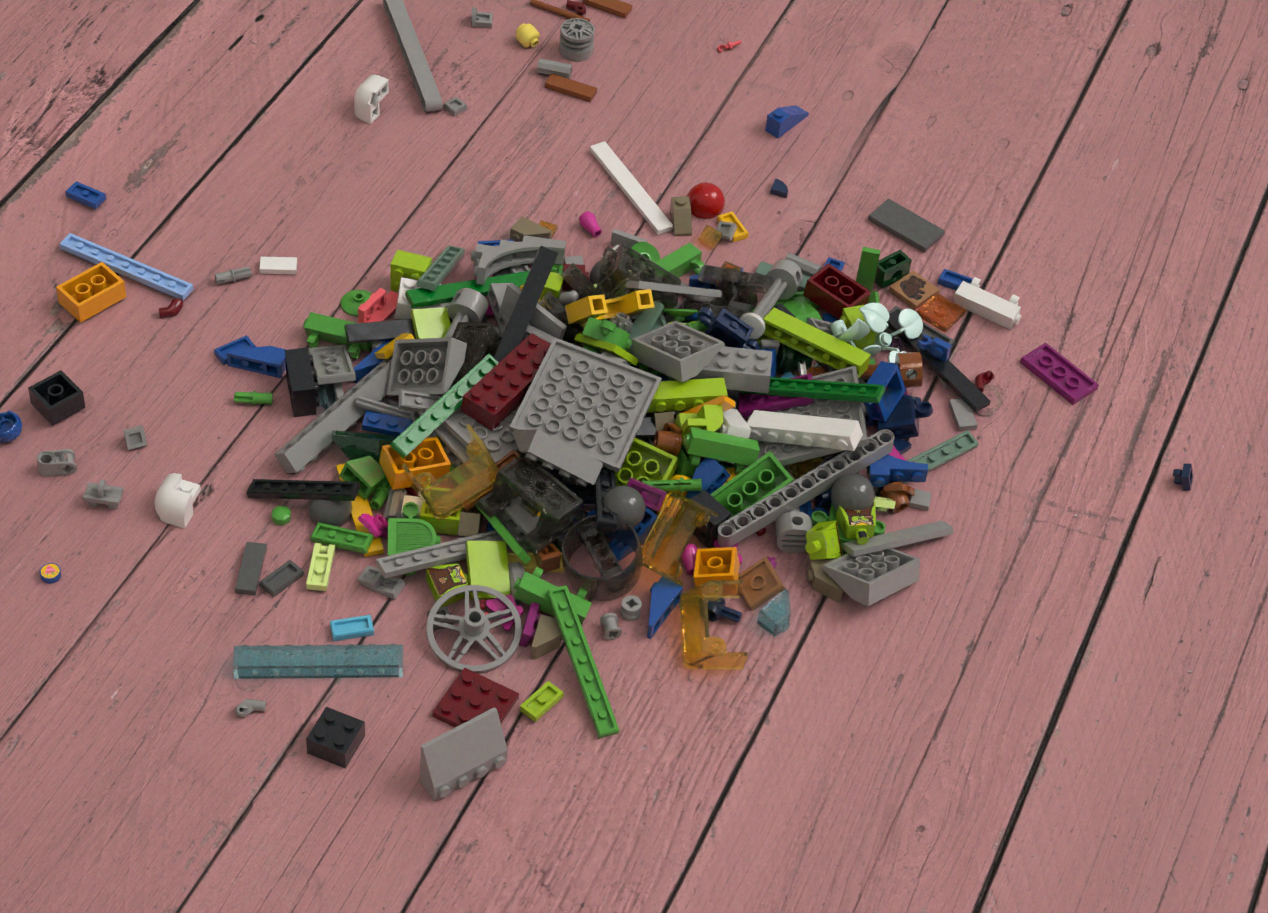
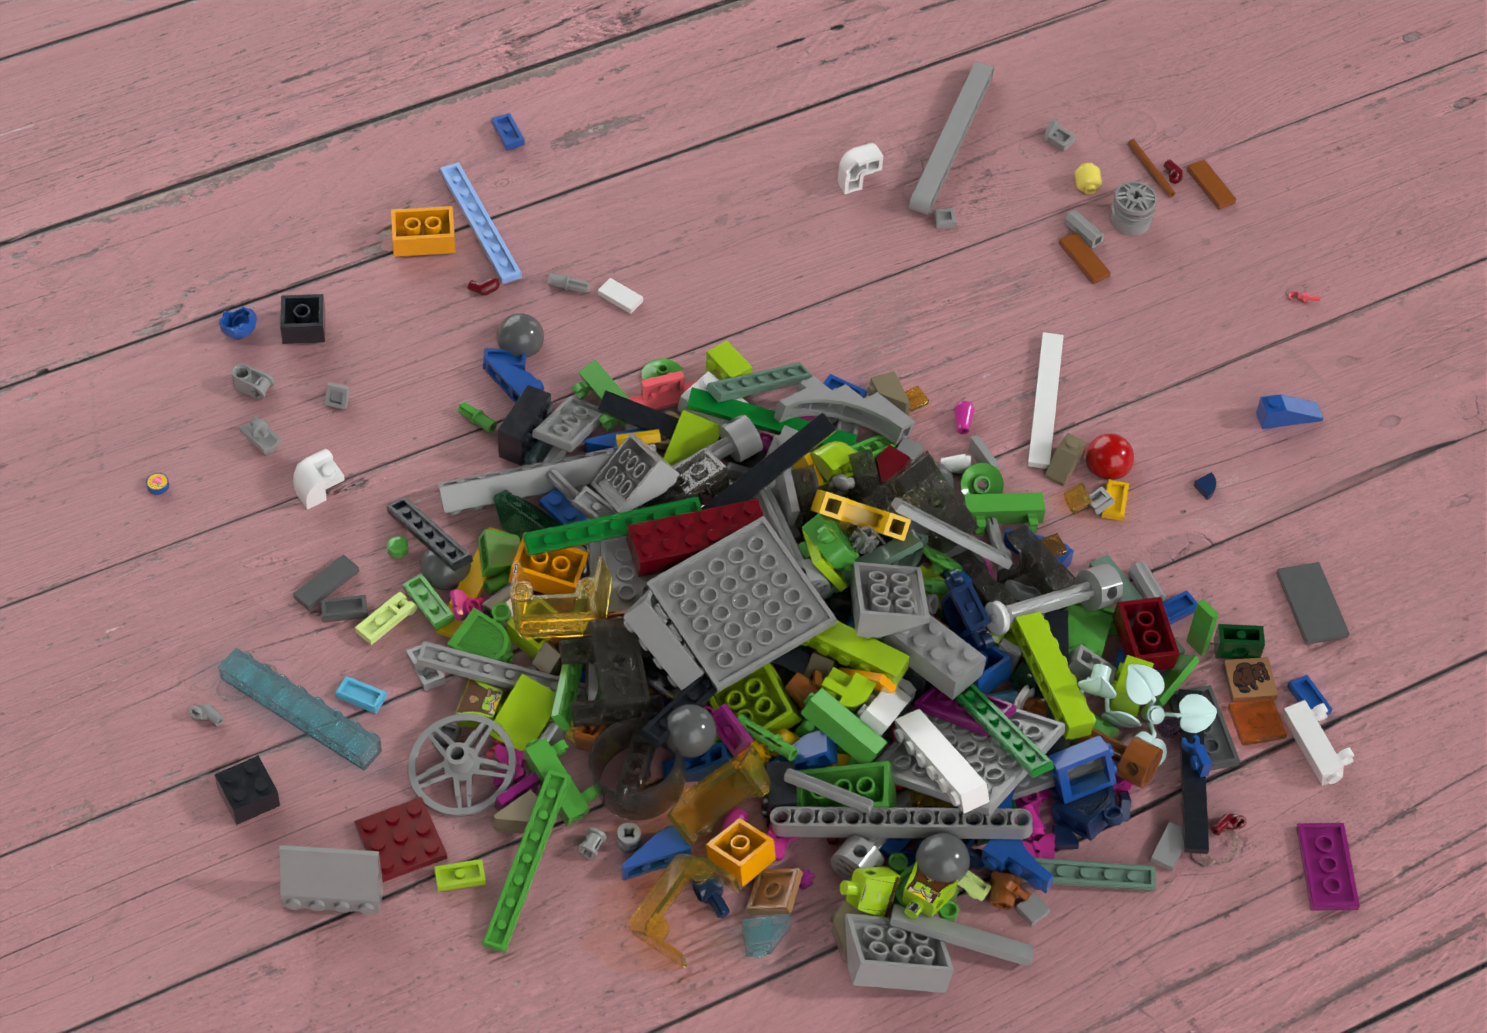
camera: 40 degrees right, 5 degrees up
(232, 326) = (520, 335): none -> dark grey piece
(747, 492) = (828, 790): none -> light grey axle

